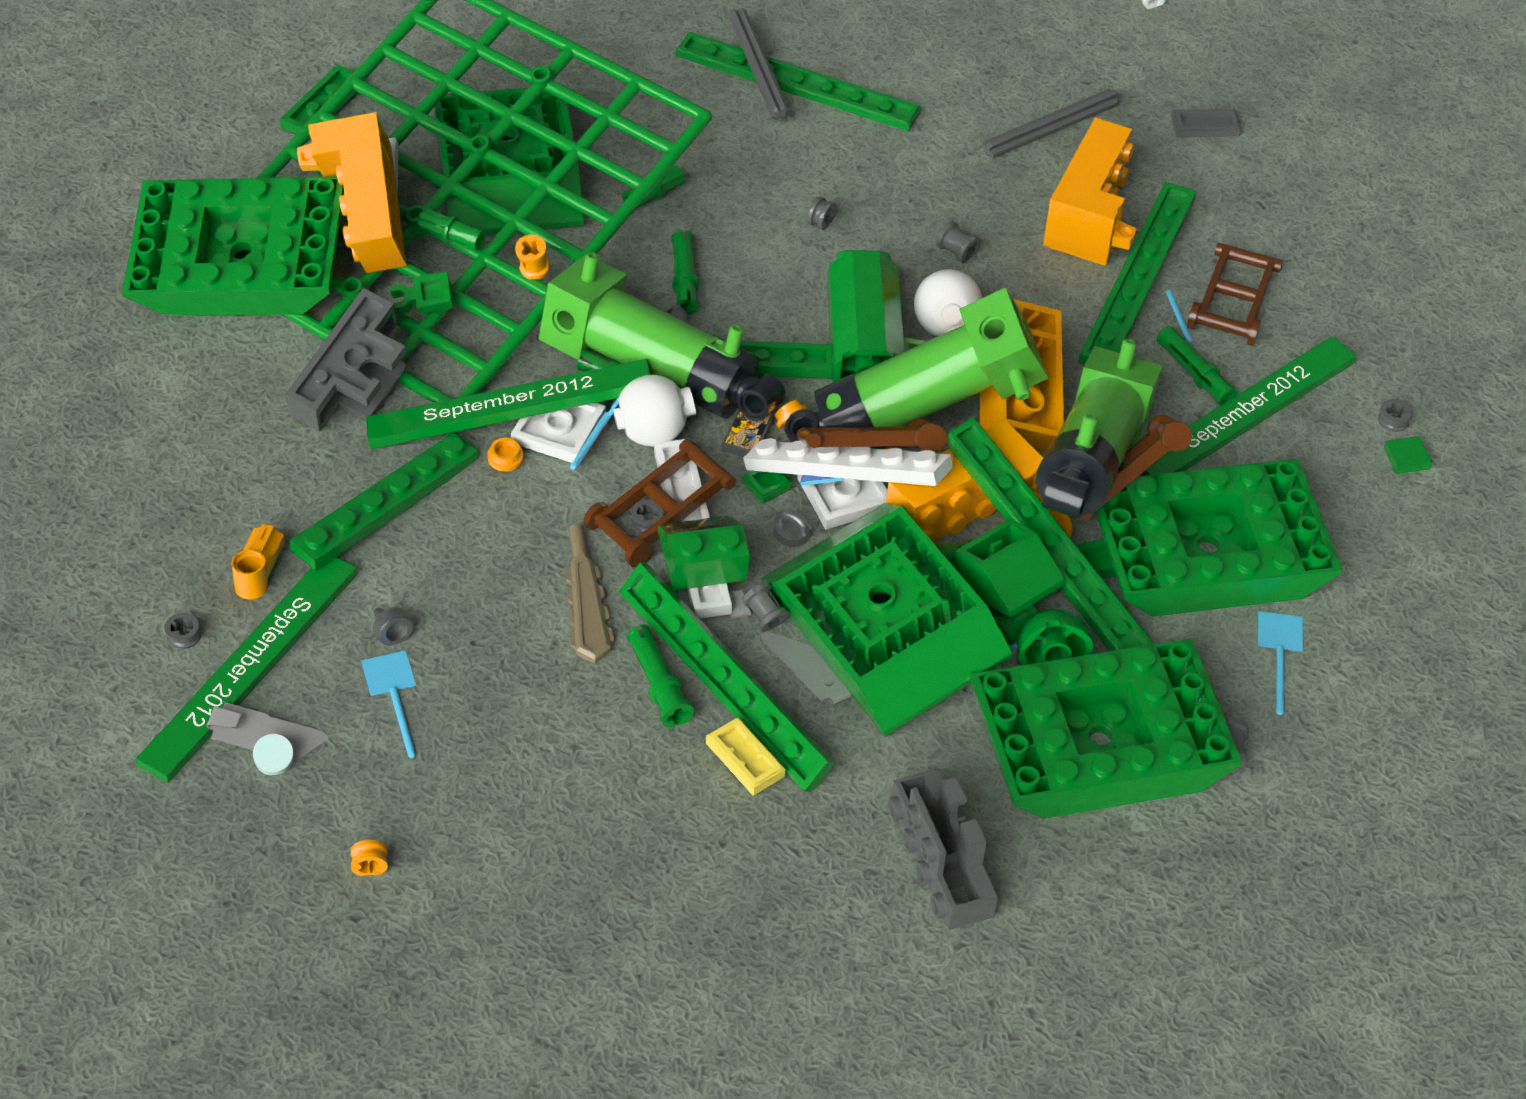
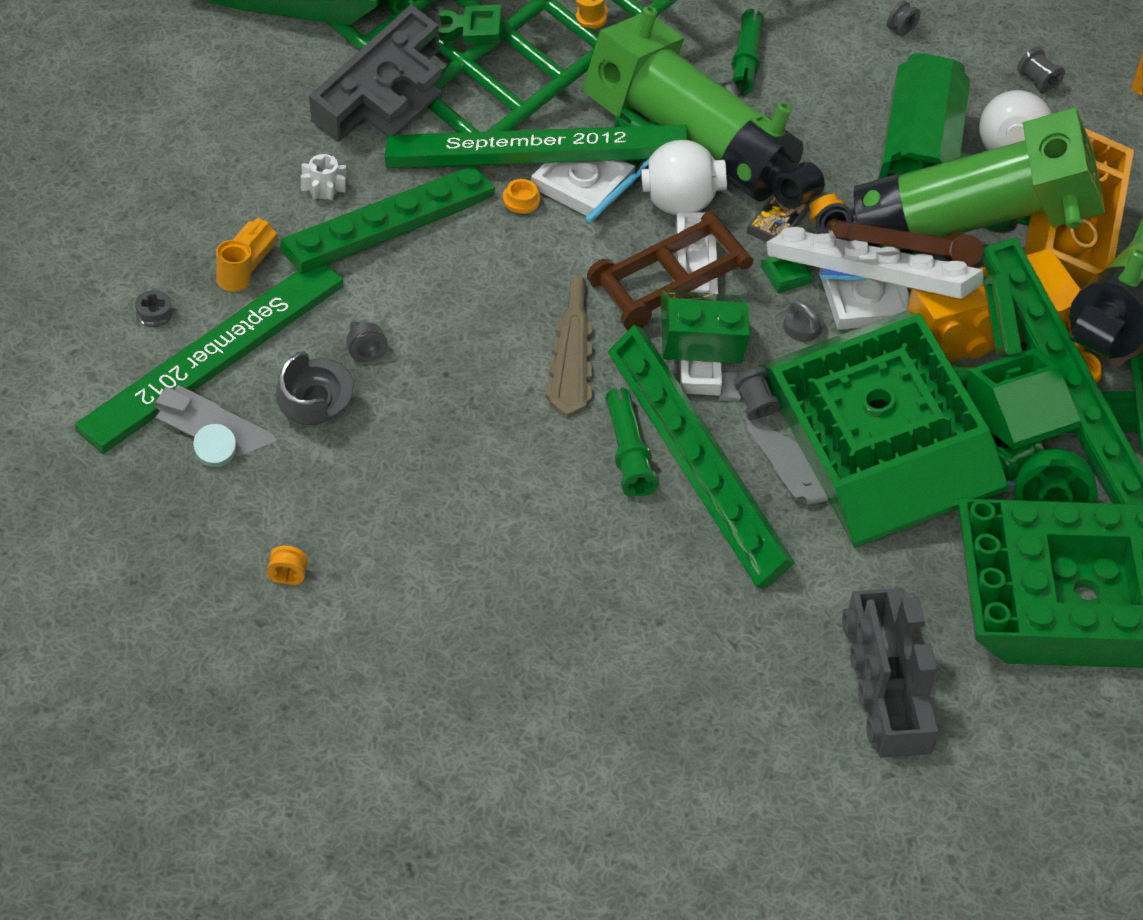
camera: 10 degrees right, 0 degrees up
(314, 470) = (323, 177): none -> white gear
(355, 682) = (312, 389): none -> dark grey helmet
(391, 674) = (363, 396): medium azure piece -> none
(640, 509) = (649, 273): dark grey bush -> none
(745, 756) = (702, 539): light yellow plate -> none
(791, 359) = (839, 154): green plate -> none
(975, 492) = (1002, 314): none -> green tile

